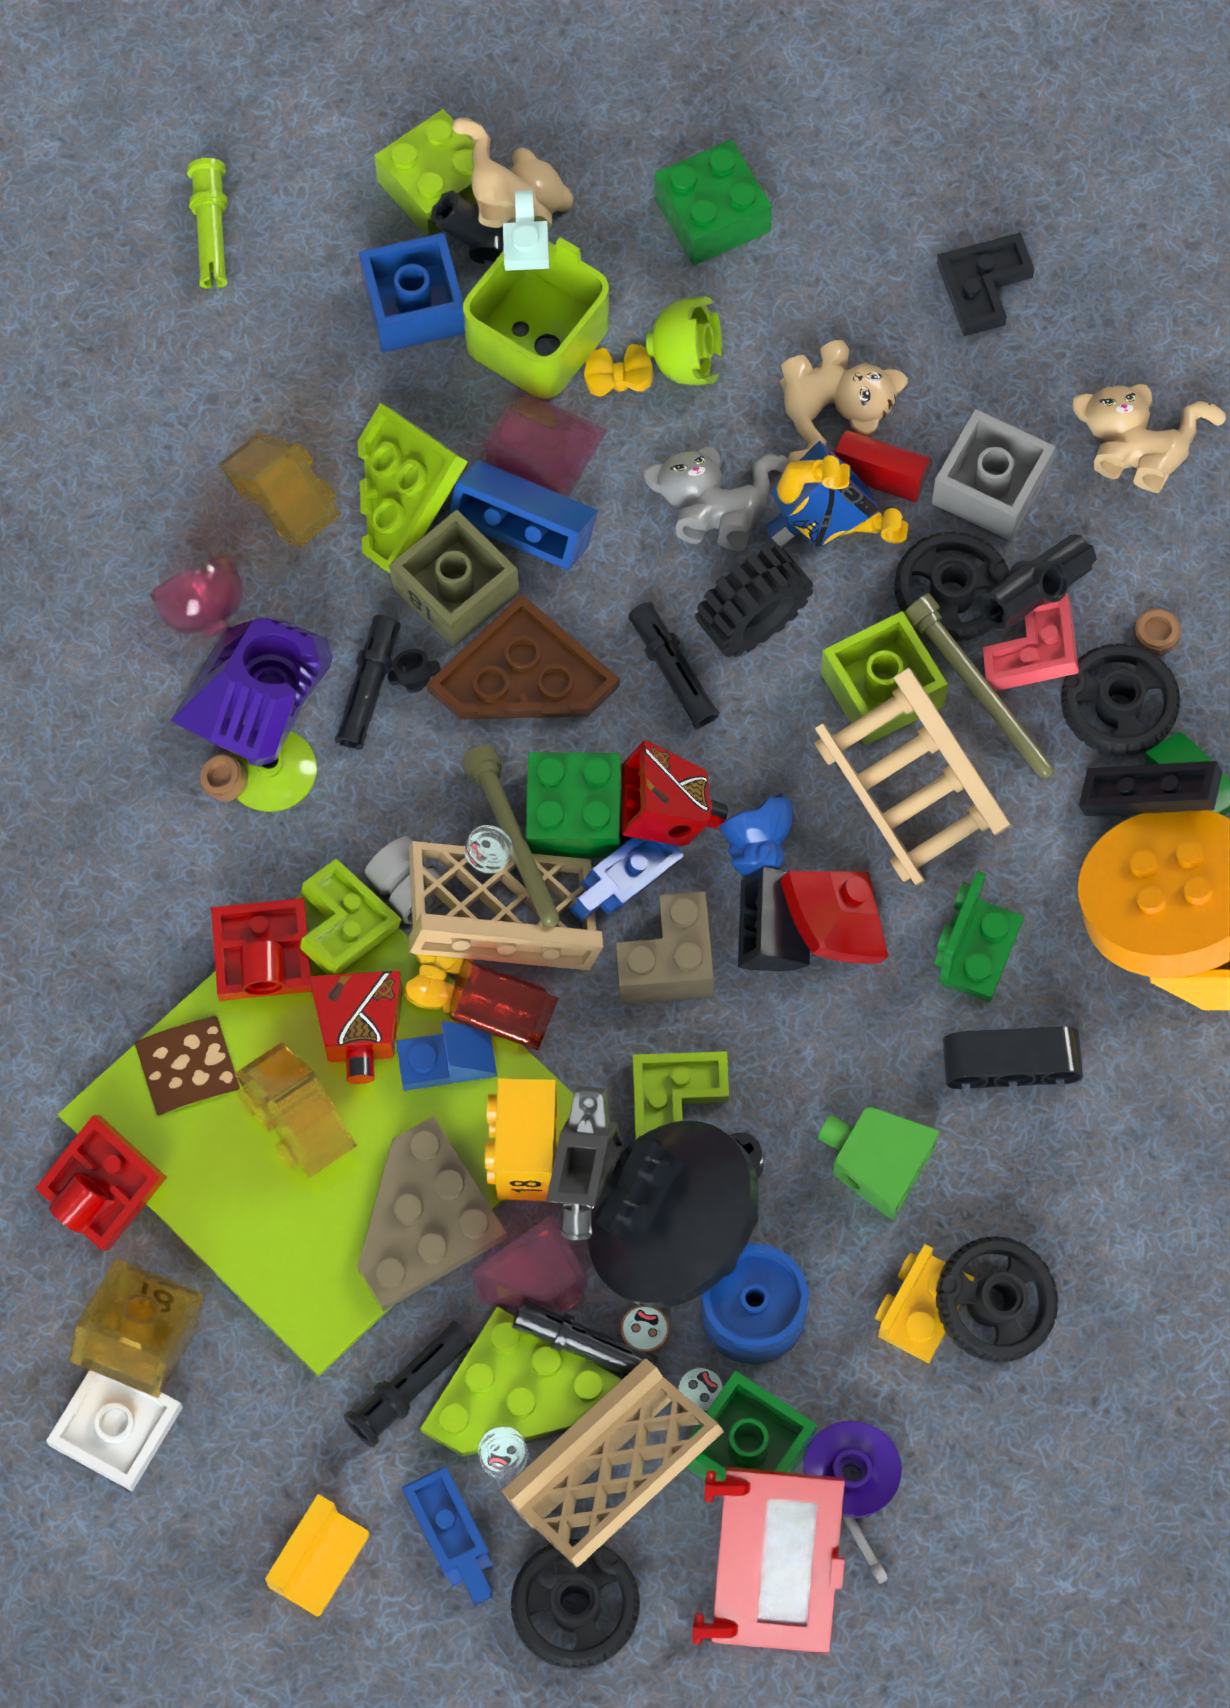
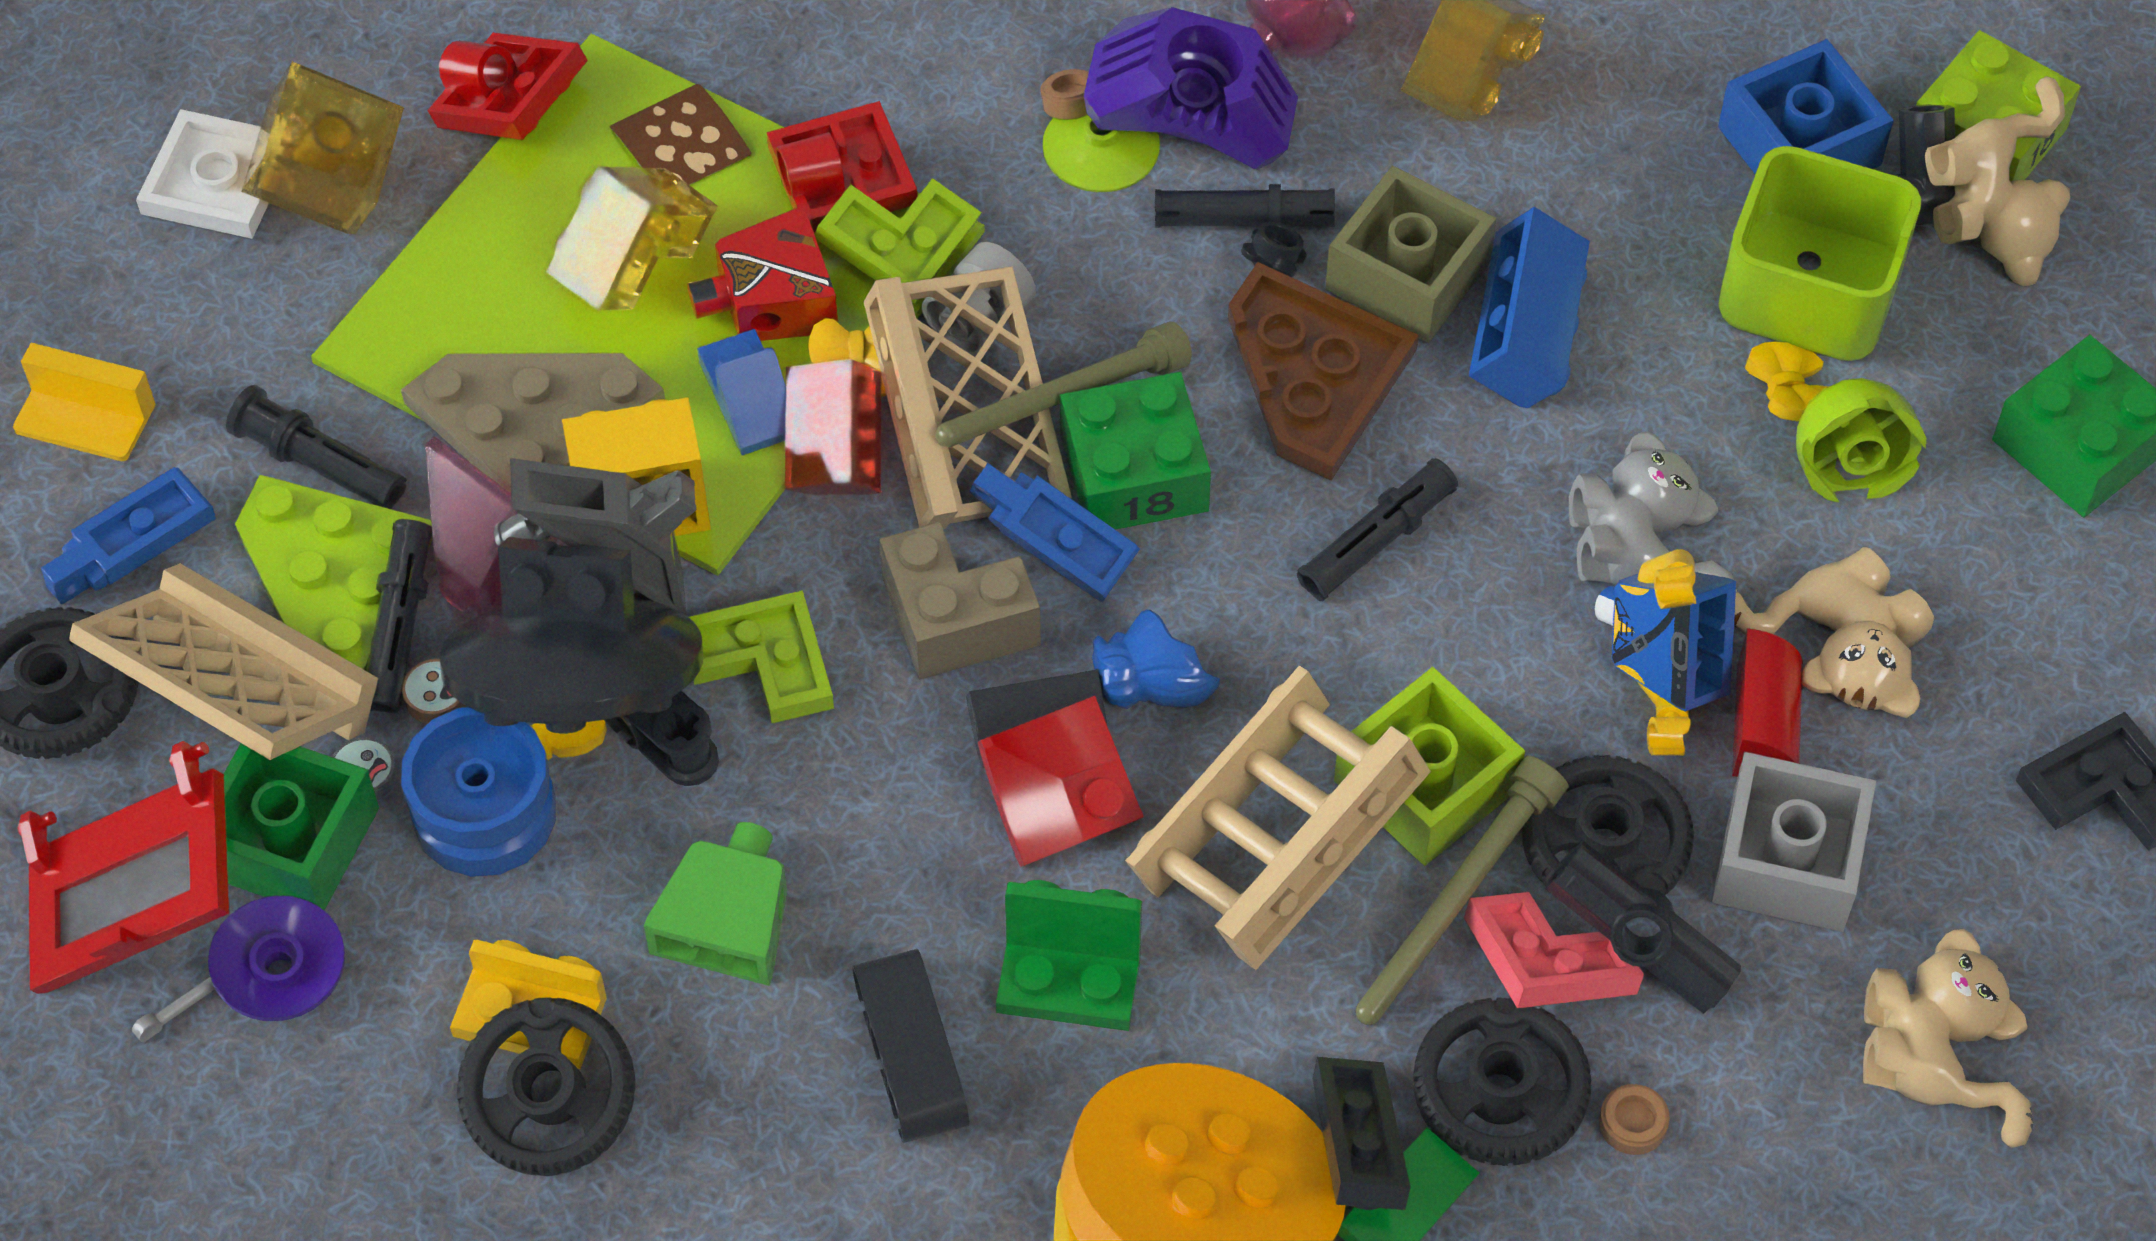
camera: 75 degrees right, 10 degrees down
(403, 483) = (1535, 177): lime plate -> none
(488, 849) = (1031, 356): clear tile -> none
(503, 1452) = (241, 564): clear tile -> none
(525, 241) = (1902, 185): light aqua plate -> none
(543, 444) = (1651, 316): clear pink slope -> none
(666, 797) = (1167, 545): red torso -> none
(754, 601) = (1483, 577): black tyre -> none

